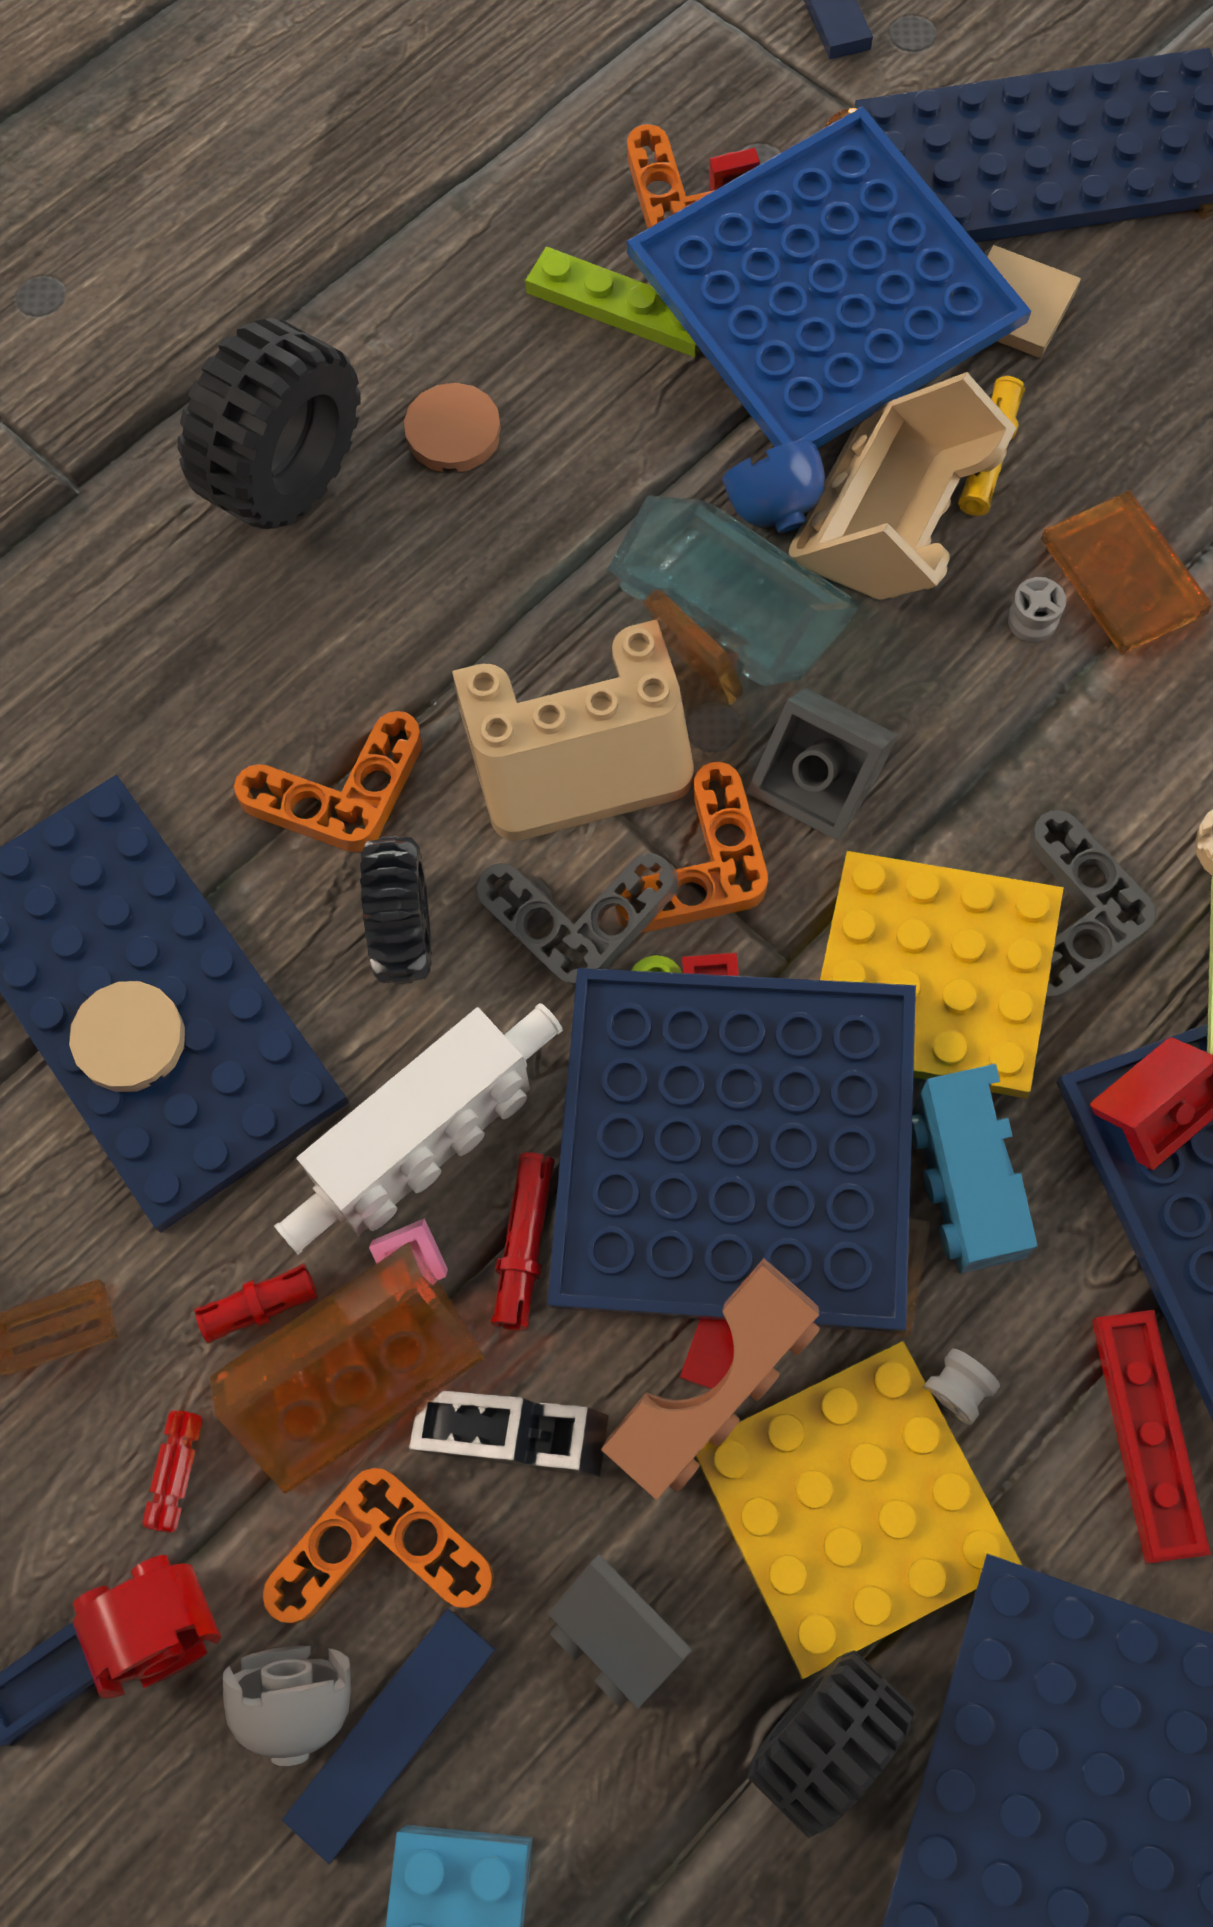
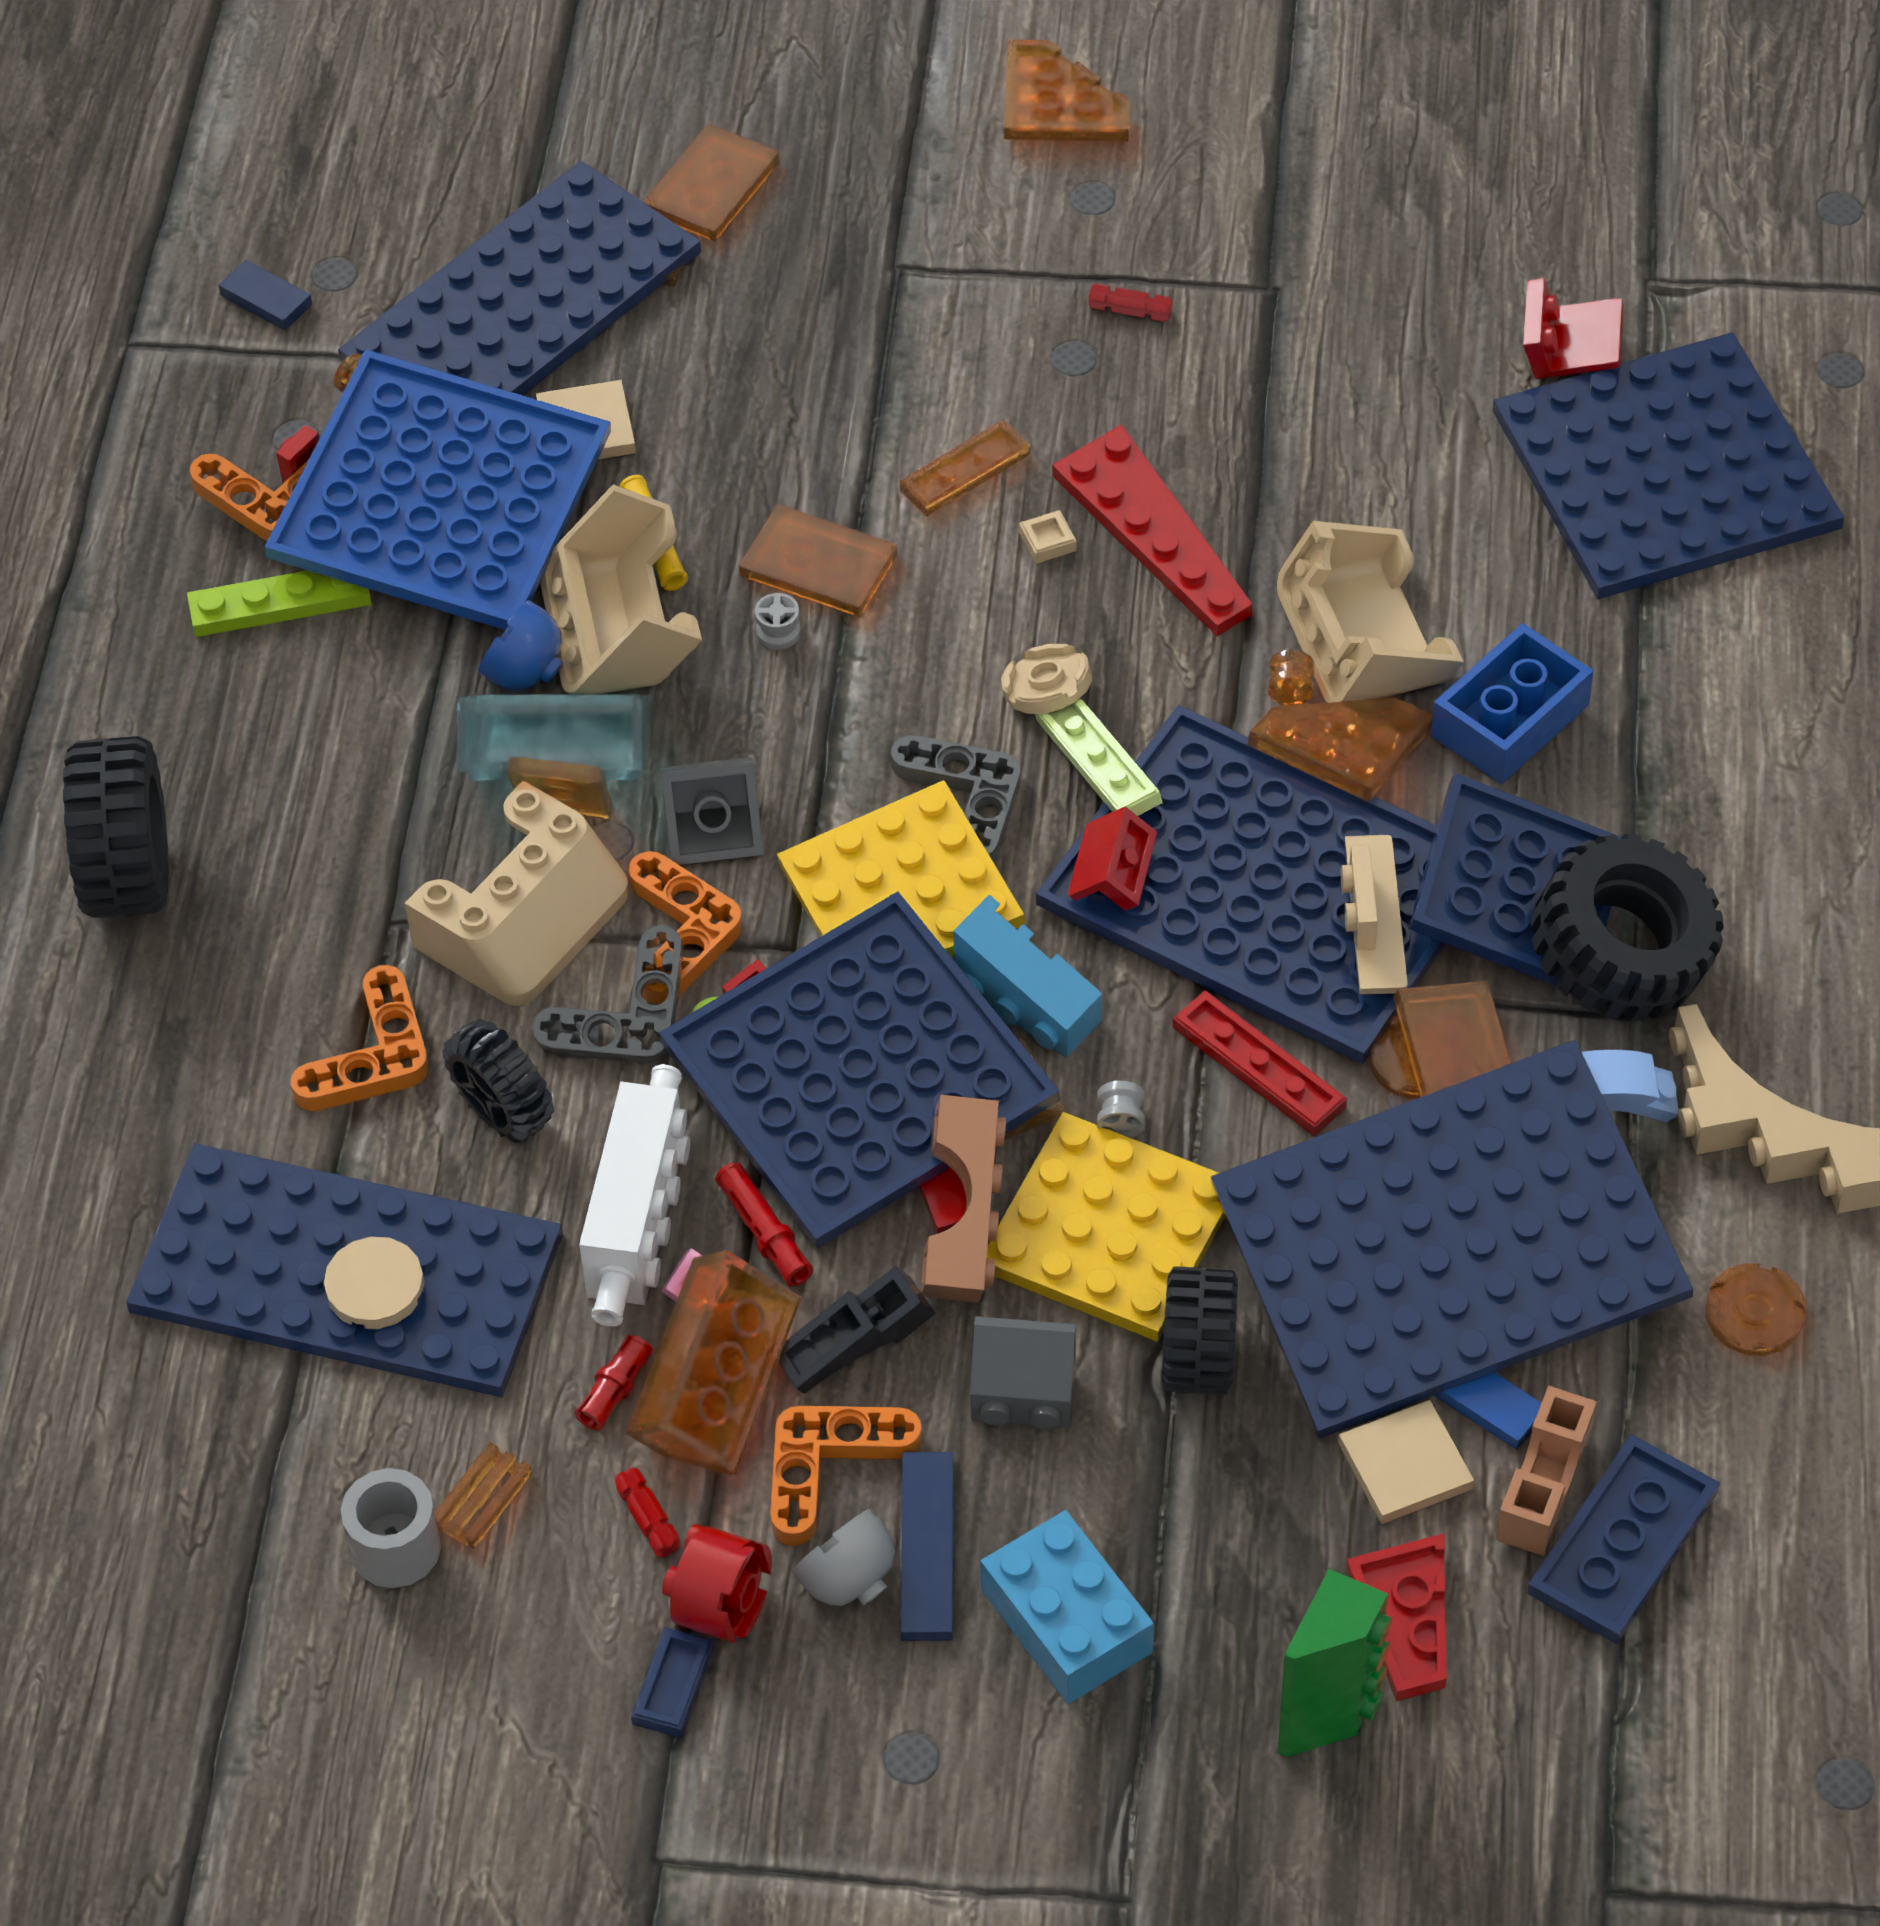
camera: 40 degrees left, 15 degrees down
(452, 427) = (229, 762): nougat tile -> none

